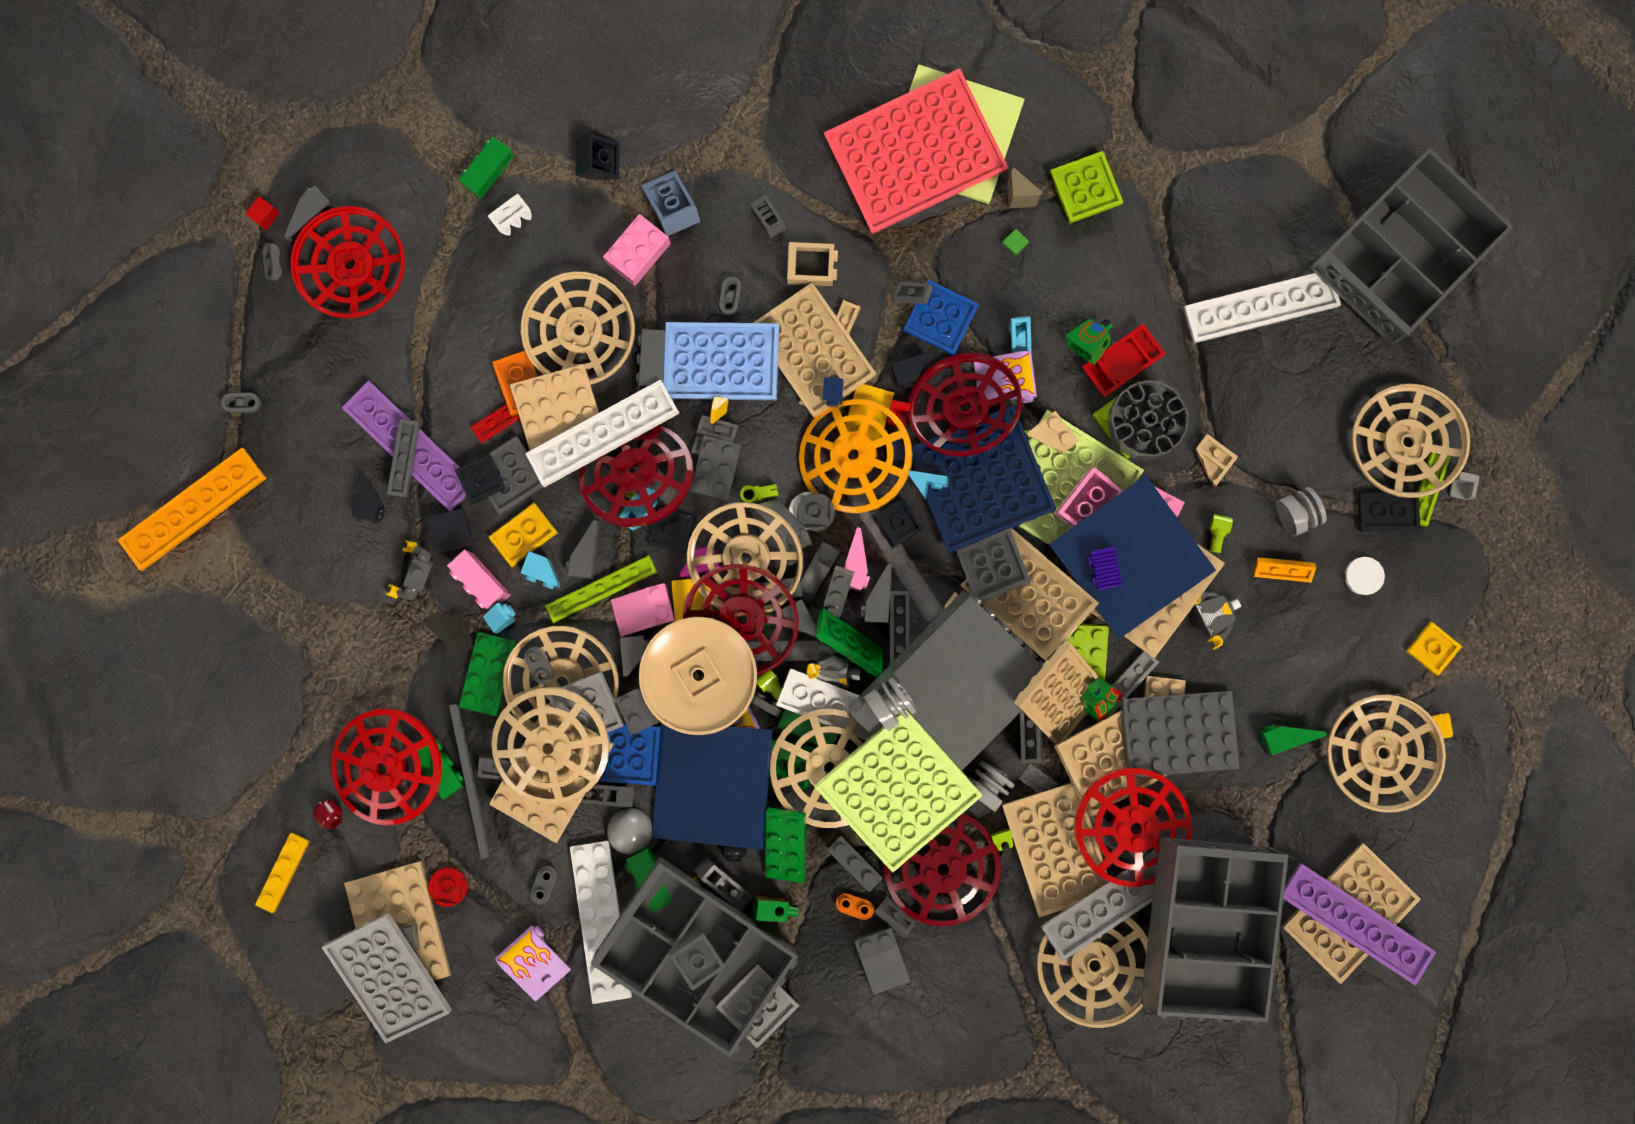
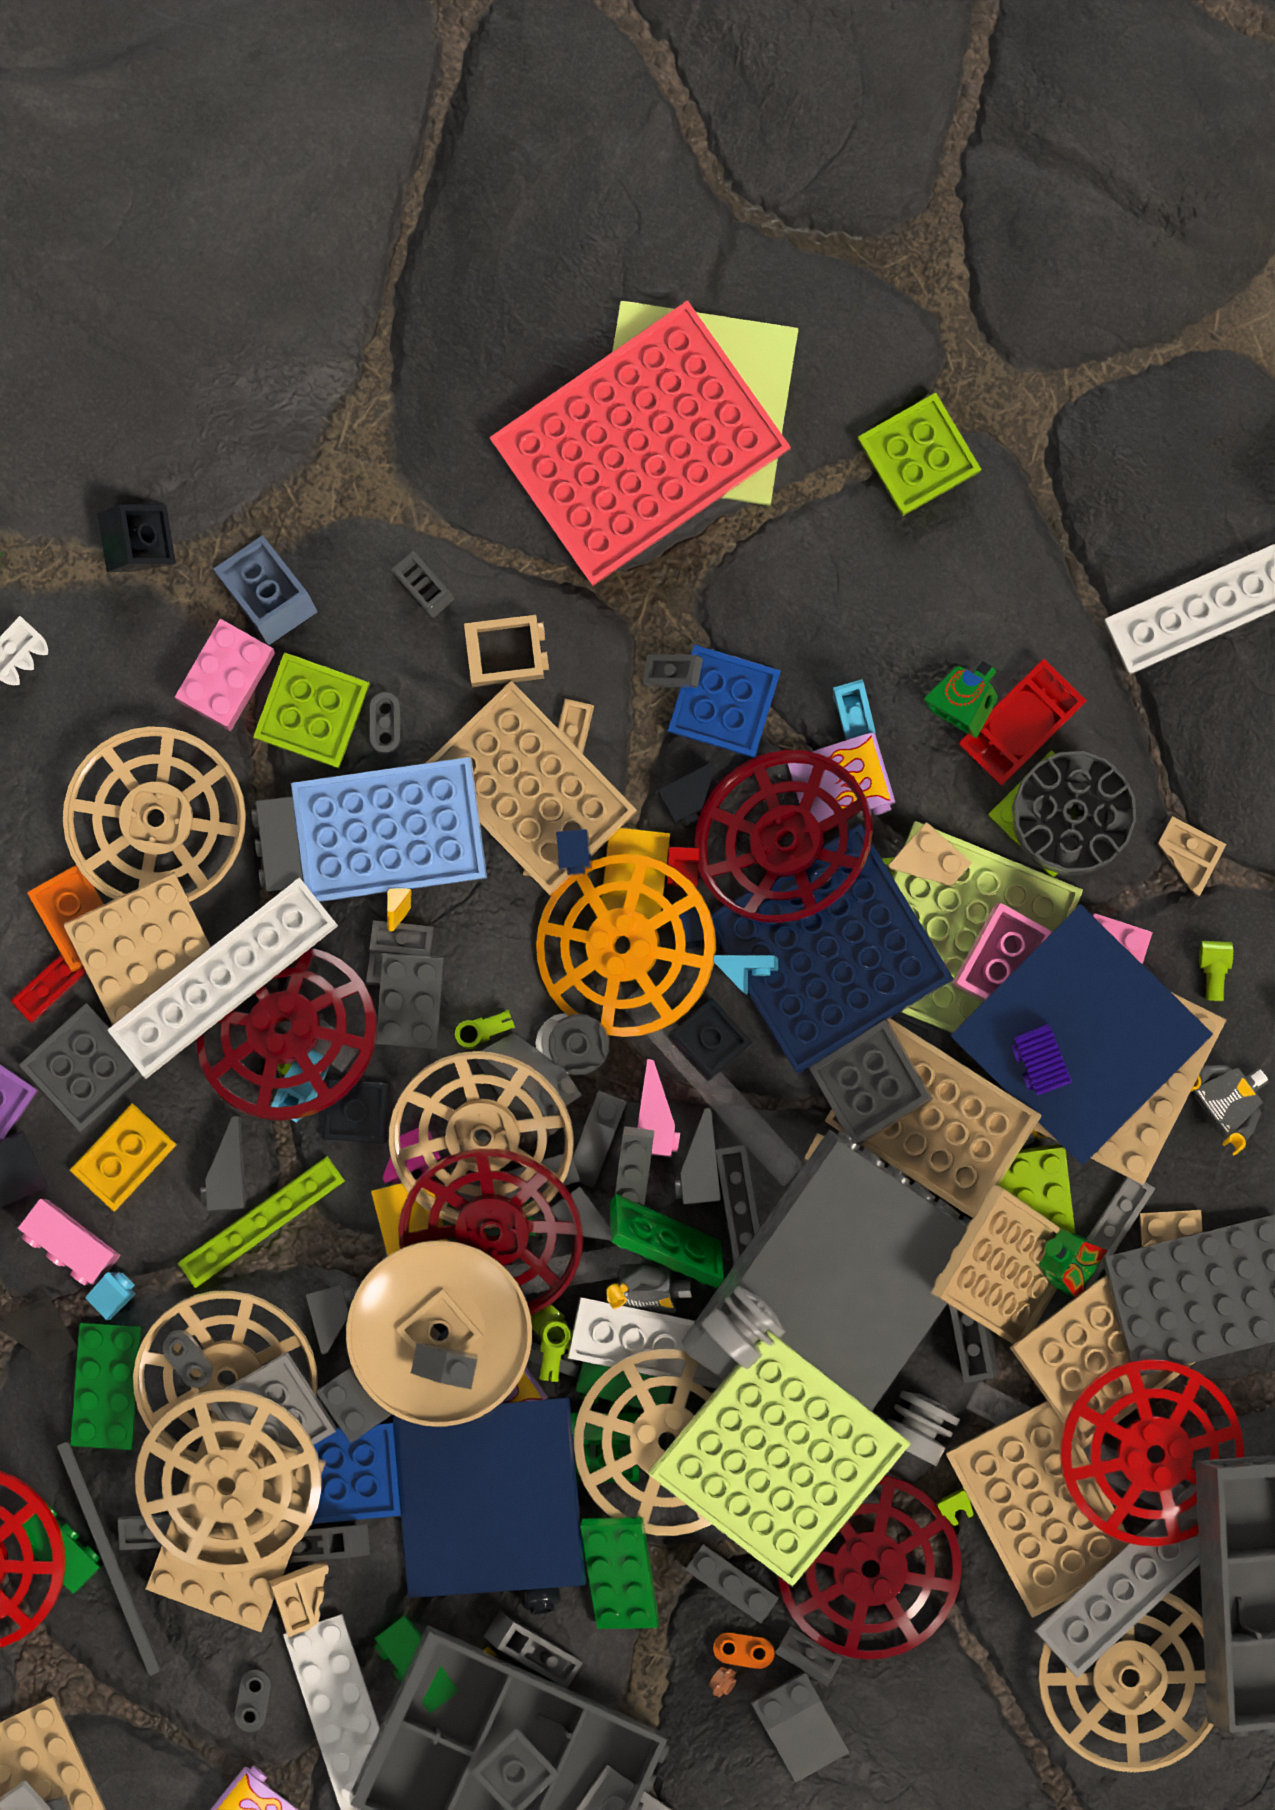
camera: 10 degrees left, 0 degrees up
(448, 886) = (103, 1729): red tile -> none
(480, 479) = (42, 1081): black tile -> none
(541, 569) = (162, 1207): medium azure slope -> none
(584, 825) = (300, 1596): none -> tan wing
(629, 831) = (372, 1594): light grey piece -> none
(643, 610) = (333, 1244): bright pink slope -> none
(686, 280) = (311, 710): none -> lime plate
(697, 696) = (444, 1365): none -> dark grey slope
(764, 909) = (603, 1675): green torso -> none
(767, 699) = (552, 1351): none -> lime pin
(838, 924) = (722, 1681): none -> nougat plate
(1015, 242) = (822, 560): bright green tile -> none
(1021, 191) = (816, 481): dark tan slope -> none

